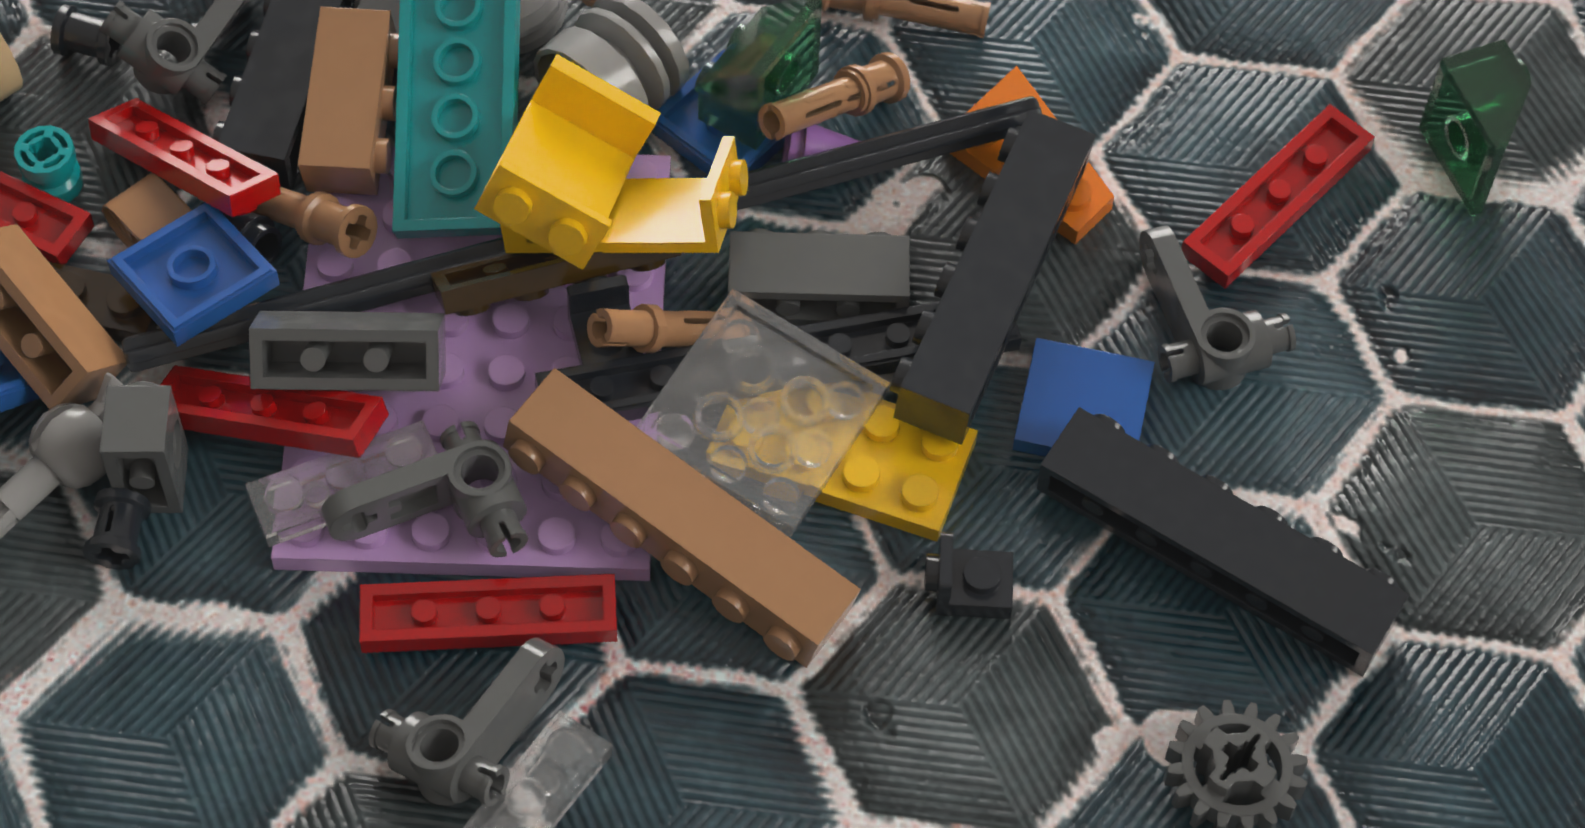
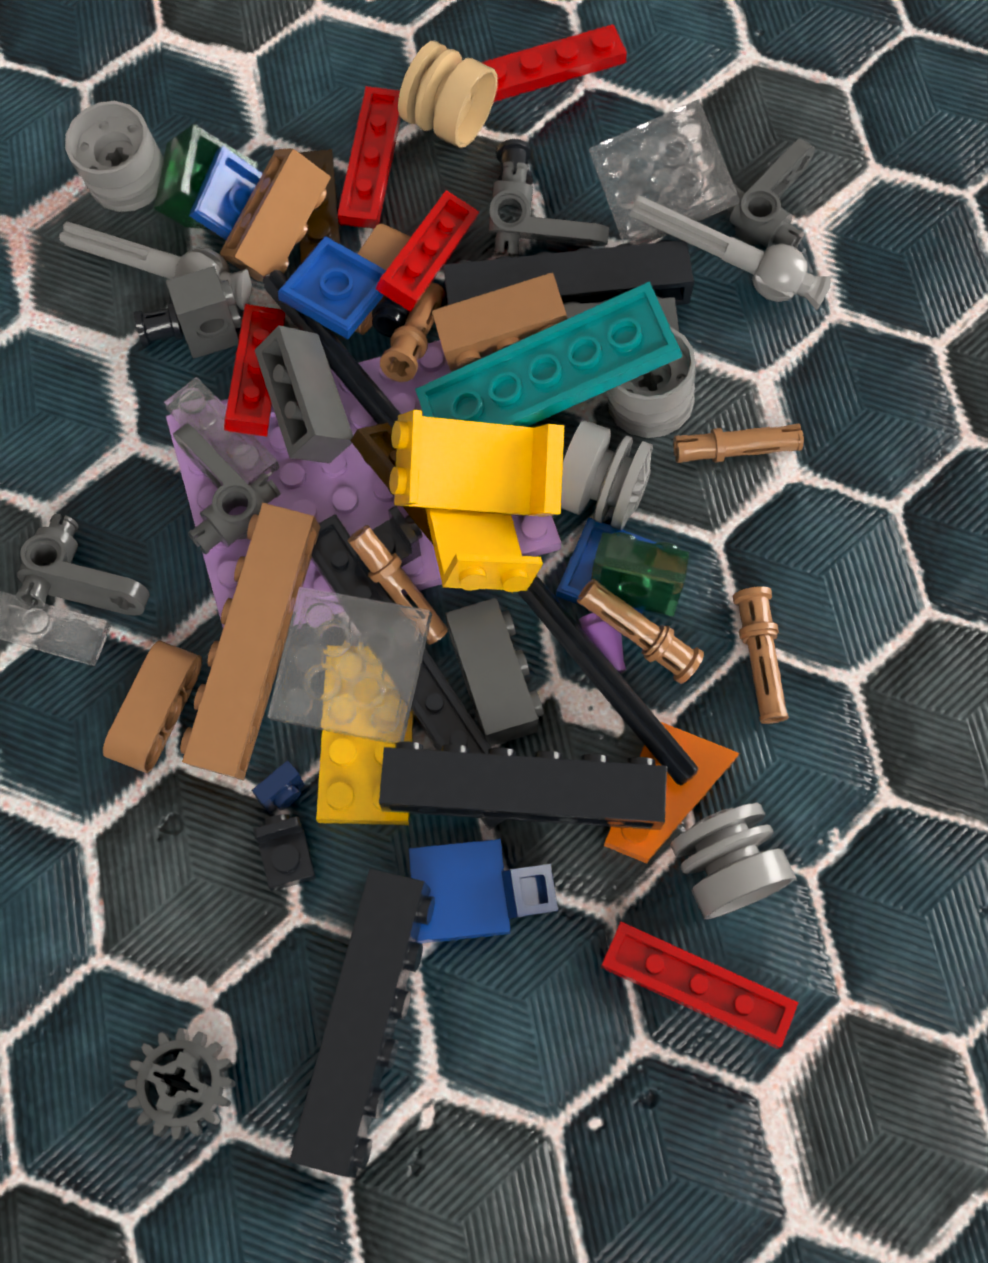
camera: 75 degrees right, 10 degrees up
(49, 161) = (405, 184): teal wheel -> none
(487, 613) = (164, 556): red plate -> none
(712, 680) = (152, 706): none -> medium nougat beam
(886, 557) = (279, 788): none -> dark blue plate
(1113, 324) = (529, 890): none -> plate
(1161, 99) = (730, 855): none -> light grey wheel
(1198, 329) = (554, 998): dark grey piece -> none
(1474, 116) = (825, 1129): clear green slope -> none

